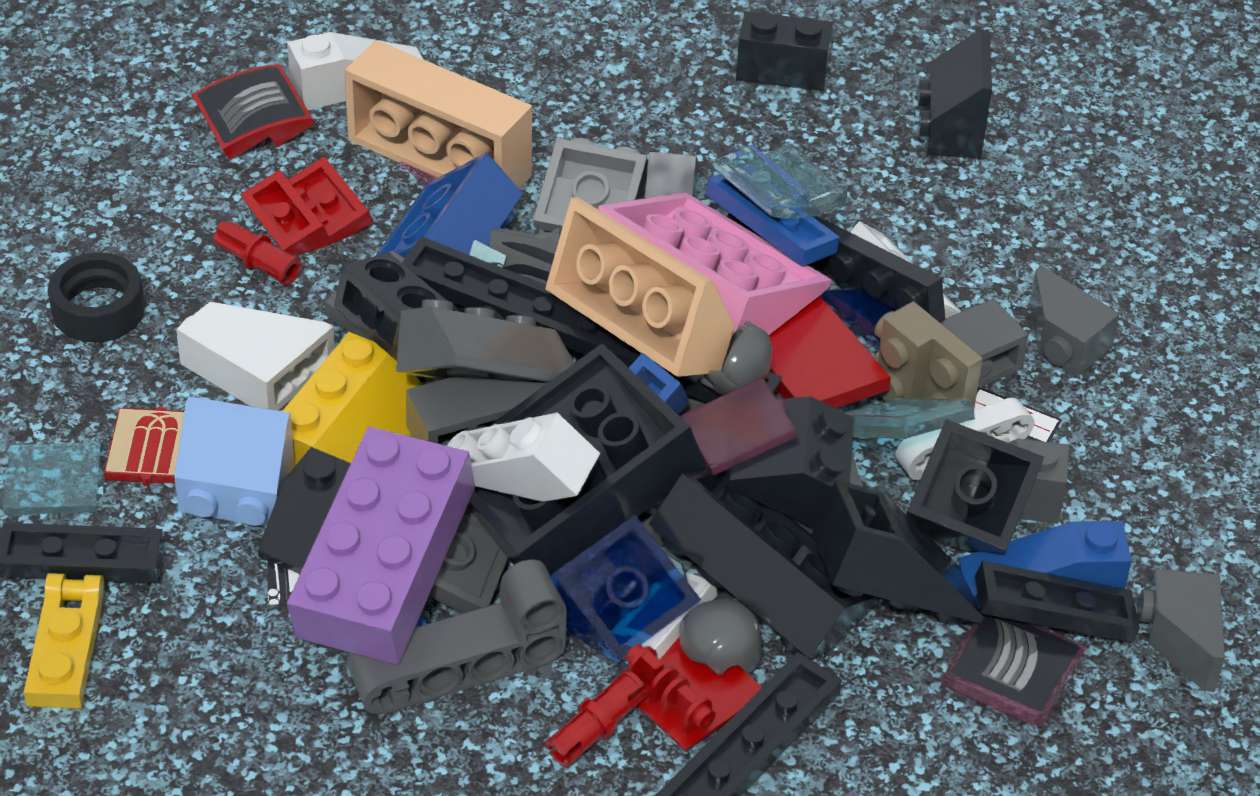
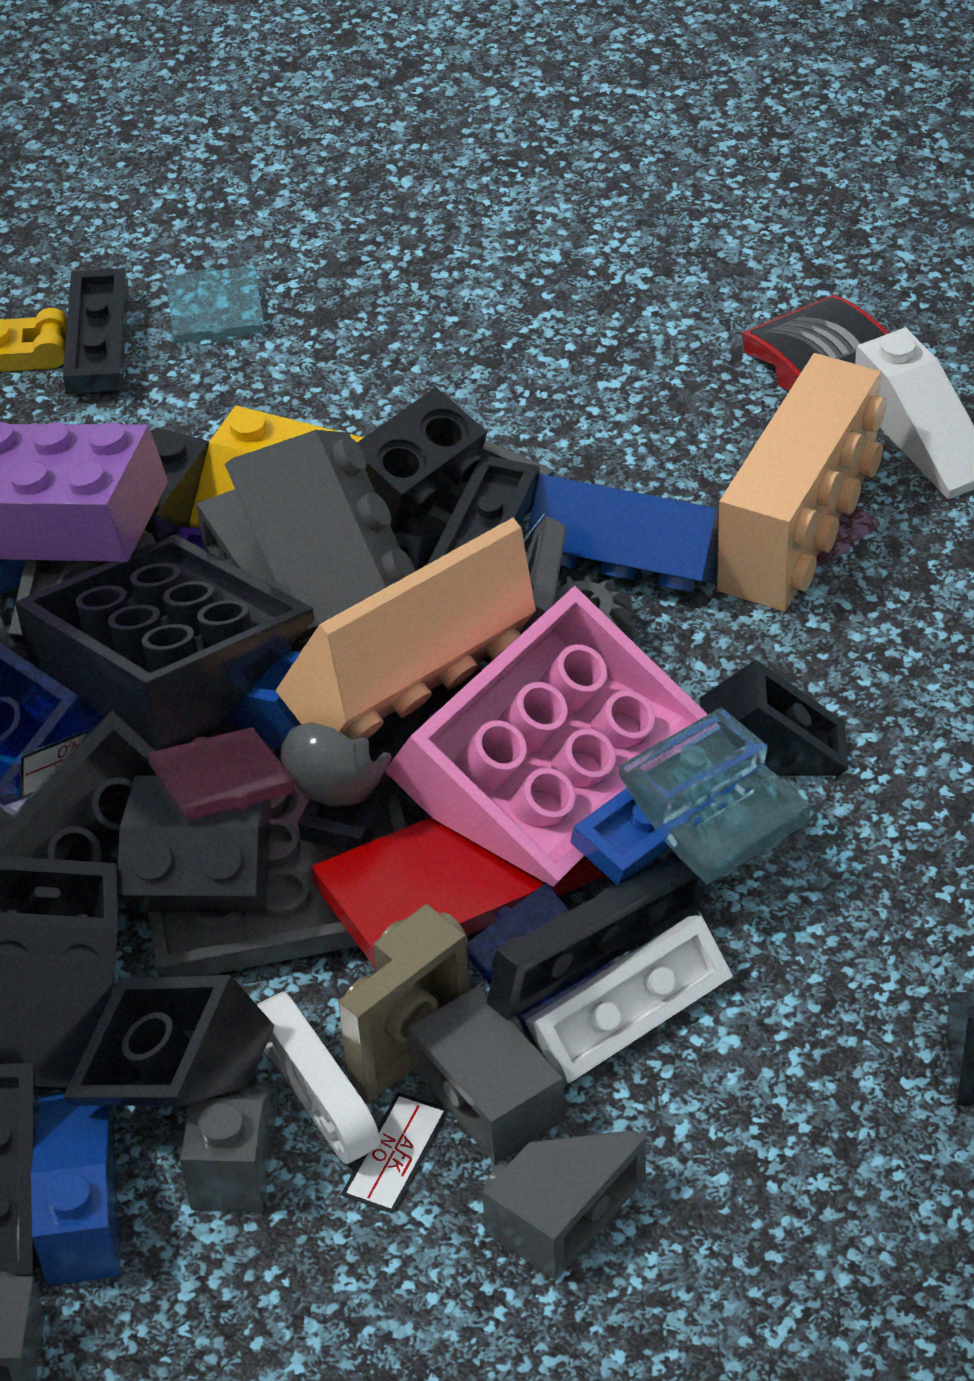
camera: 90 degrees right, 0 degrees up
(100, 322) = (475, 304): black tyre -> none
(144, 446) = (266, 365): piece -> none
(232, 460) = (199, 383): light blue slope -> none
(254, 352) = (383, 382): white slope -> none
(257, 252) = (569, 388): red axle -> none
(307, 209) = (660, 417): red slope -> none
(529, 457) = (116, 561): white slope -> none
(592, 174) = (724, 632): light grey plate -> none
(909, 417) = (288, 968): clear light blue tile -> none

